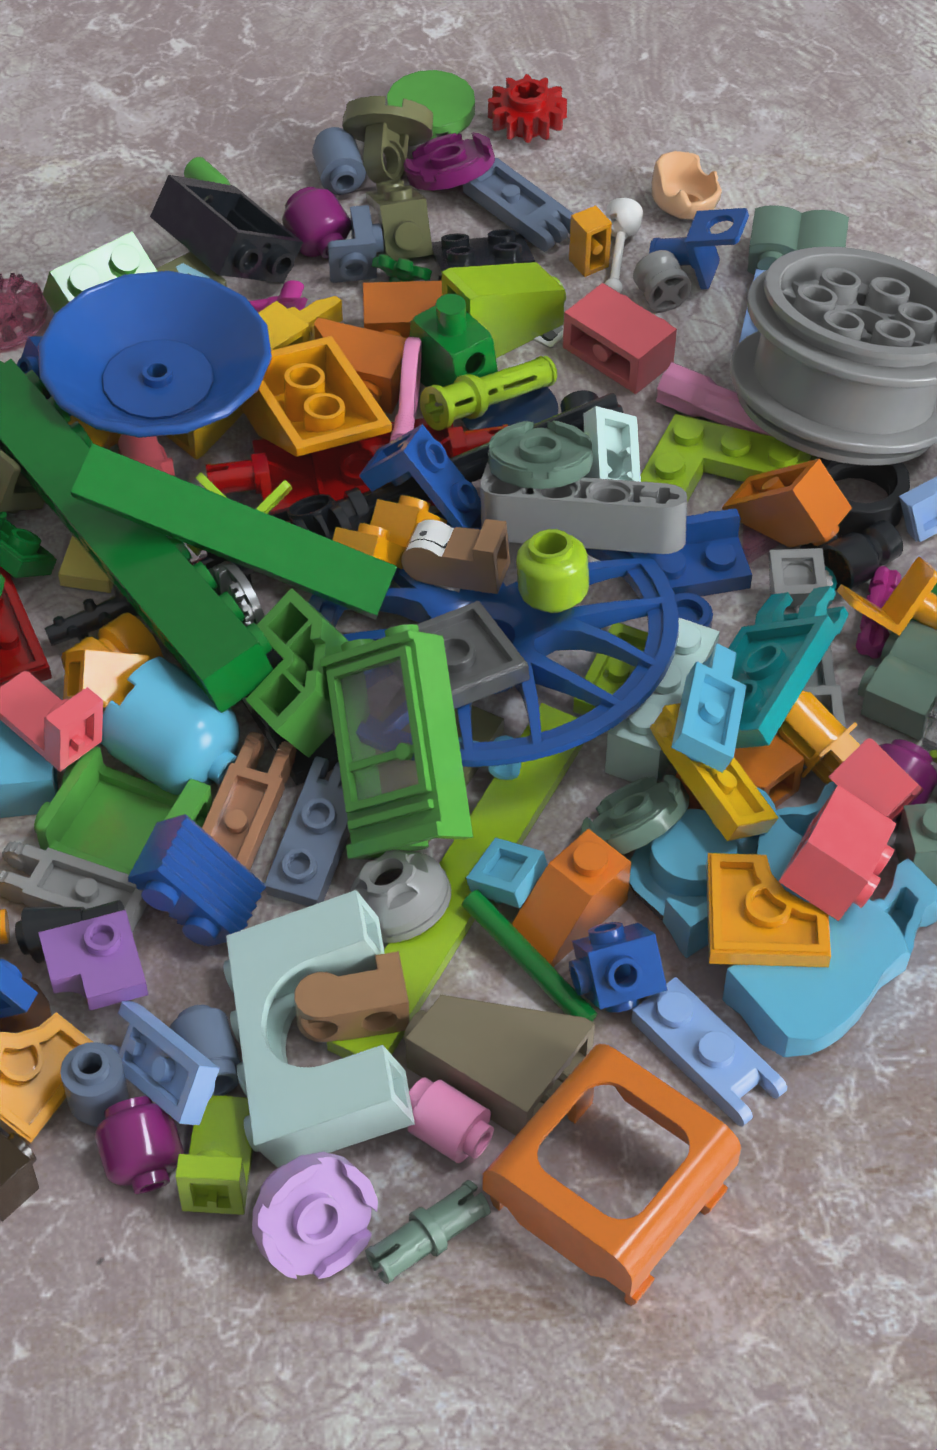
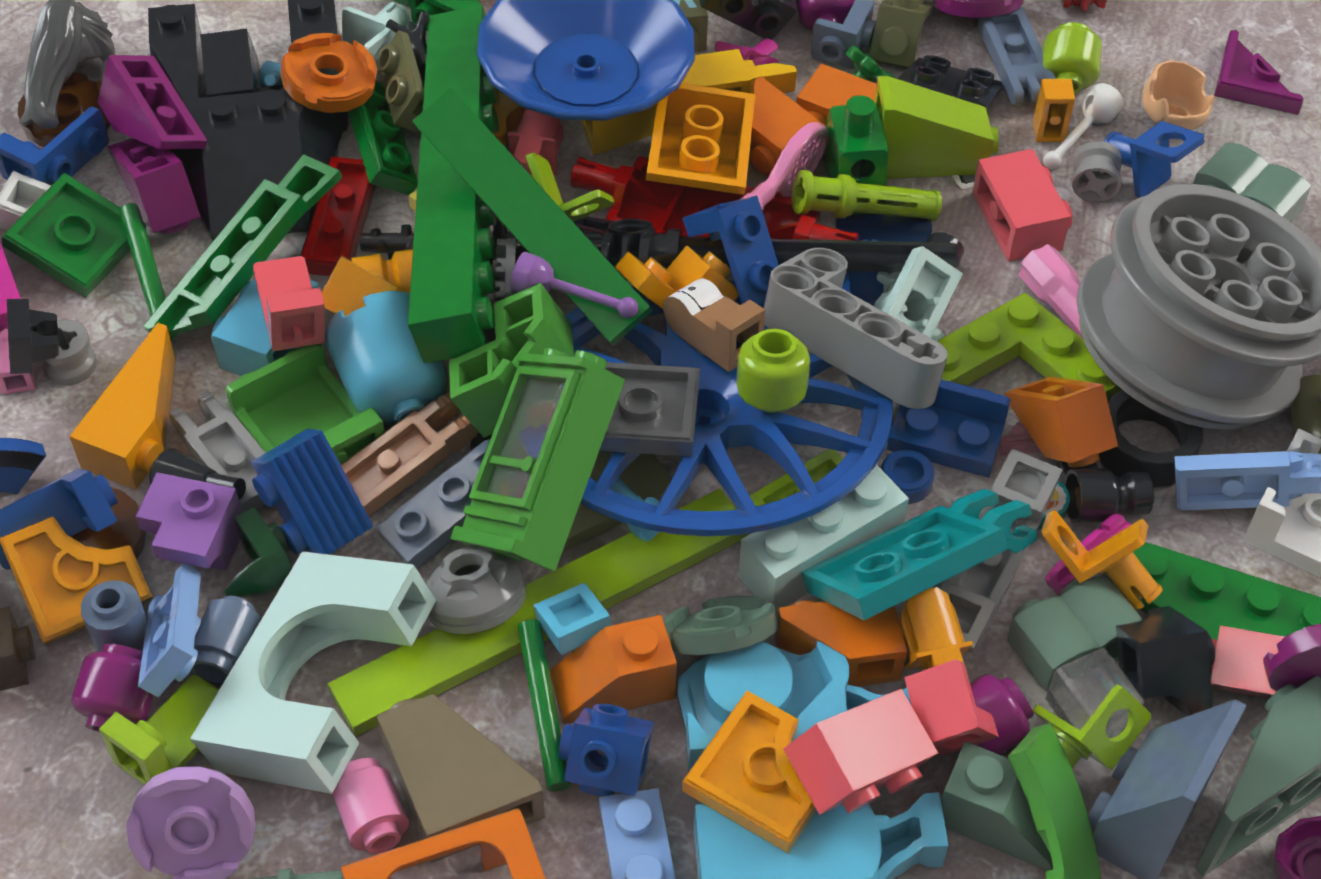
camera: 30 degrees right, 0 degrees up
(183, 957) = (267, 551): none -> dark green plate
(277, 580) = (534, 269): none -> medium lavender hinge
(353, 1004) = (363, 664): medium nougat leg -> none
(540, 455) = (844, 268): sand green tile -> none
(571, 181) = (1073, 54): none -> lime head
(710, 711) = (827, 561): medium azure hinge -> none
(727, 797) = (799, 625): yellow hinge -> none
(728, 144) = (1253, 80): none -> magenta tile

